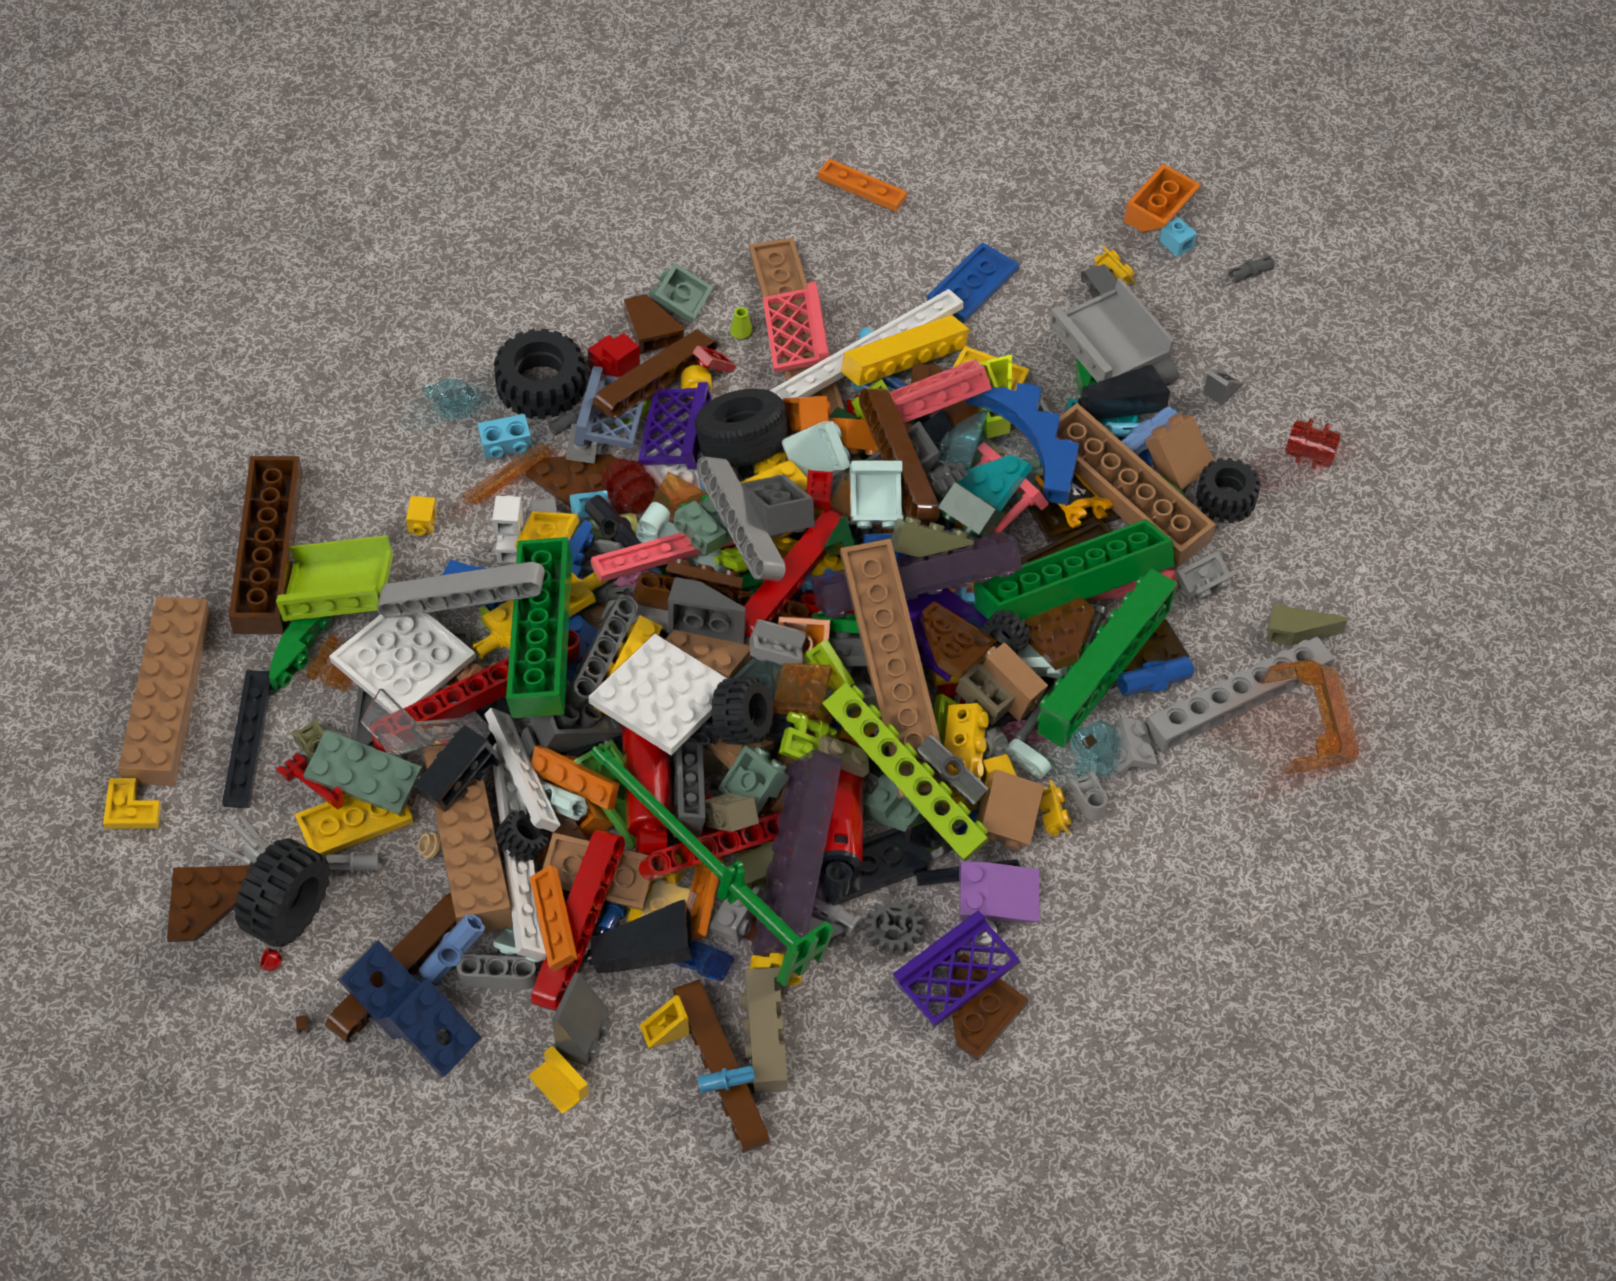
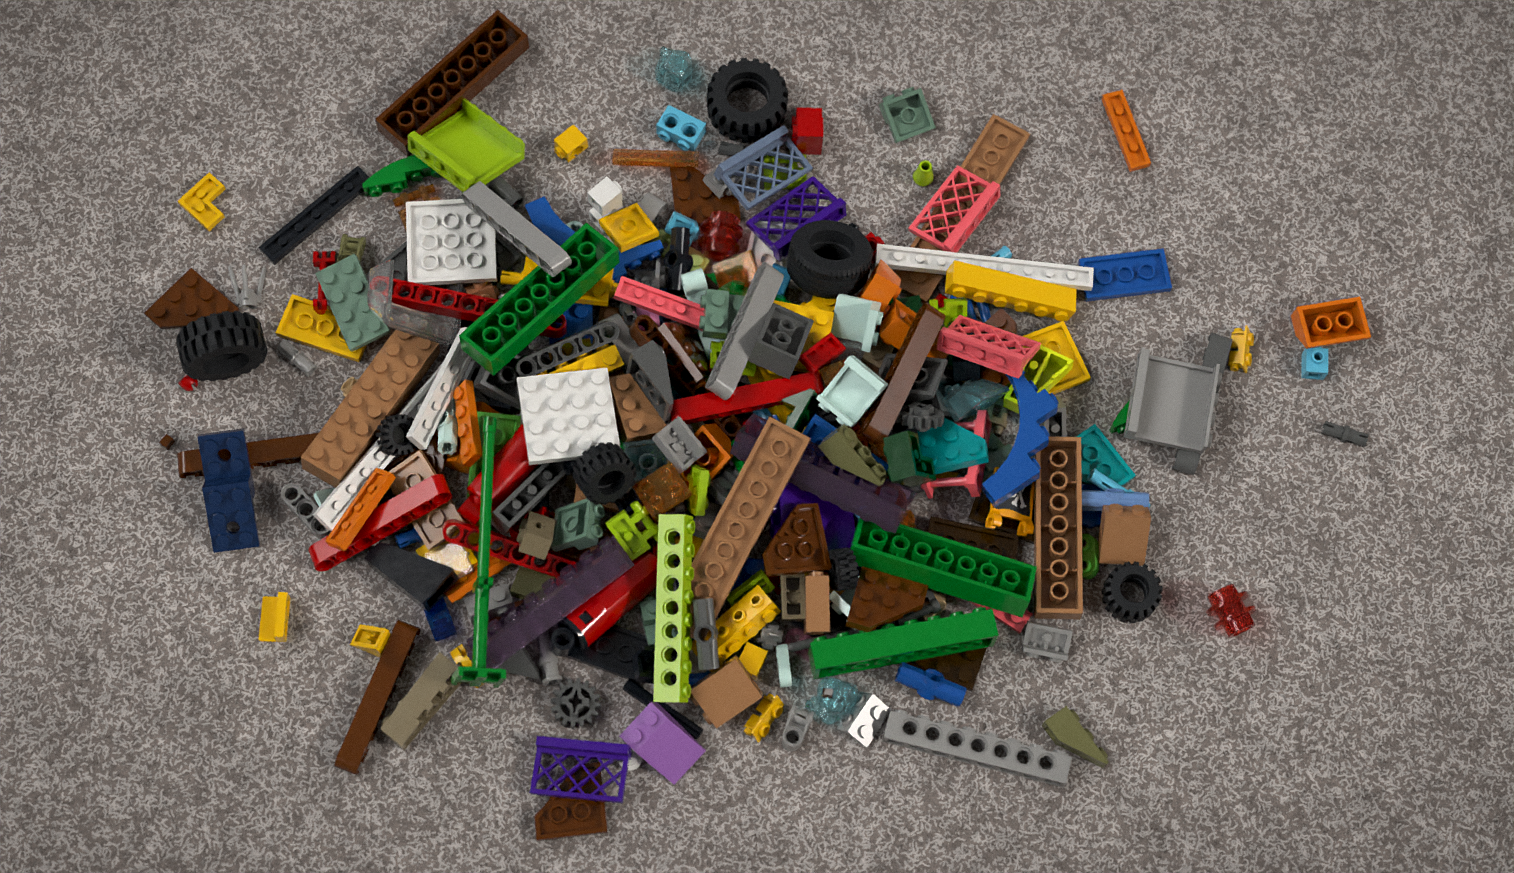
camera: 40 degrees right, 15 degrees up
(165, 691) = (296, 138): medium nougat brick -> none
(456, 768) = (398, 352): black wedge -> none
(459, 940) = (287, 473): medium blue piece -> none
(580, 1022) = (314, 592): dark grey slope -> none
(651, 324) = (861, 122): reddish brown slope -> none
(651, 375) = (820, 165): reddish brown beam -> none
(693, 375) = (850, 191): yellow head -> none
(713, 359) = (875, 186): red plate -> none
(726, 1079) = (362, 711): dark azure axle -> none
(854, 758) = (645, 558): dark tan plate -> none
(1126, 394) = (1133, 457): black slope -> none
(1220, 386) = (1220, 507): dark grey slope -> none
(1338, 743) = (1022, 821): clear orange windscreen -> none

